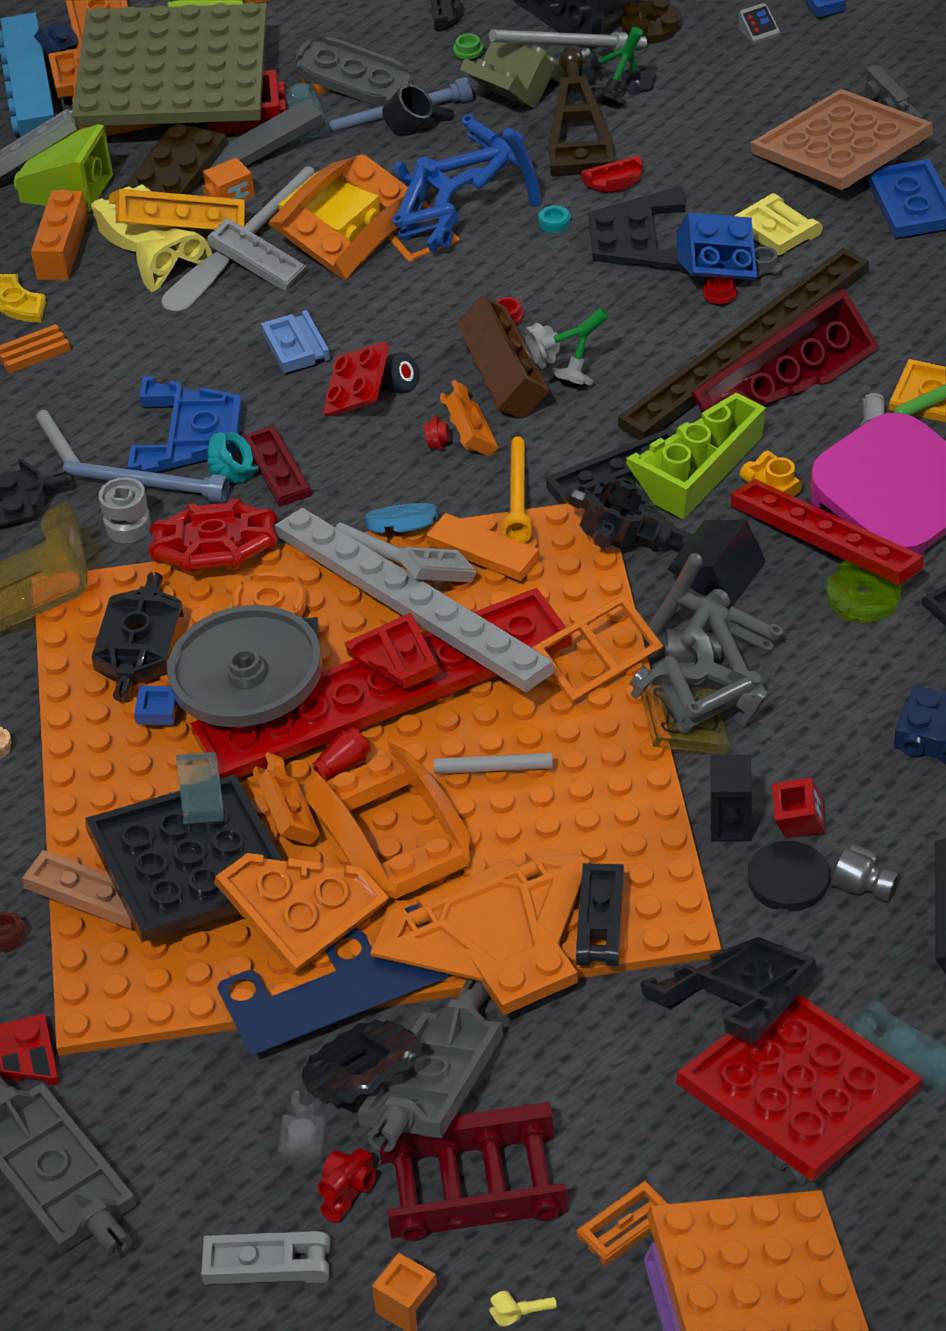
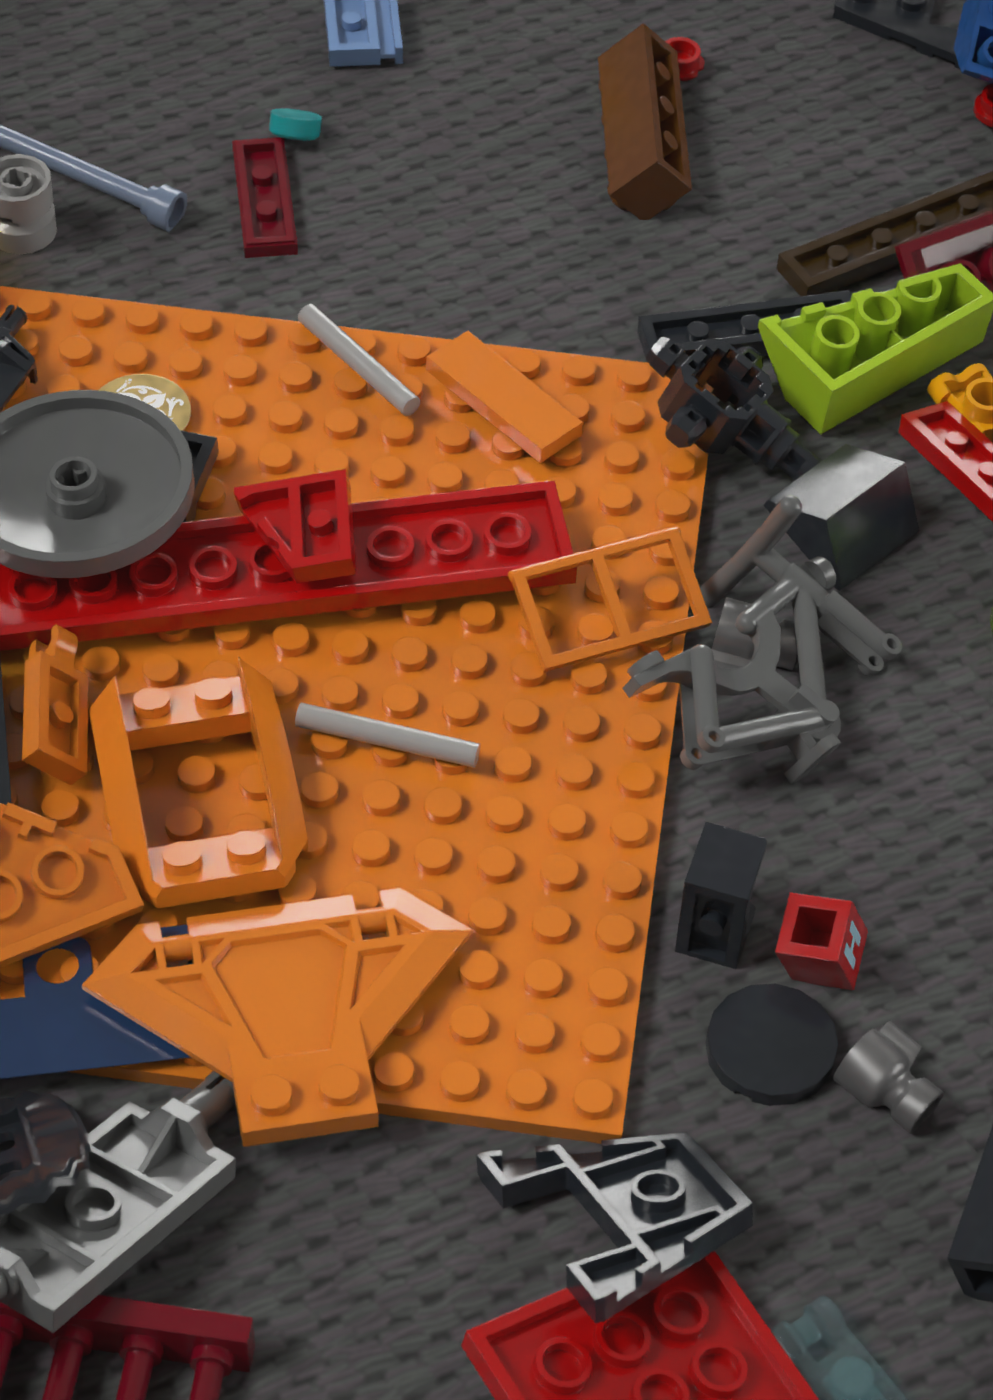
camera: 10 degrees right, 5 degrees up
(192, 424) = (179, 116): blue wing -> none
(213, 535) = (126, 275): red plate -> none
(222, 462) = (182, 170): teal piece -> none
(272, 590) = (146, 378): orange tile -> none
(278, 415) = (295, 124): none -> teal tile
(343, 753) = (167, 658): red cone -> none
(360, 373) = (441, 91): red plate -> none
(401, 517) = (405, 320): dark azure tile -> none
(407, 595) = (372, 455): light grey plate -> none
(436, 564) = (420, 405): light grey plate -> none
(437, 434) = (508, 210): red plate -> none
(469, 420) = (562, 203): orange plate -> none
(517, 524) = (565, 375): light orange piece -> none
(545, 345) = (713, 119): light grey plant -> none
(600, 913) = (451, 1026): black plate -> none
(705, 737) = (726, 783): clear yellow tile -> none

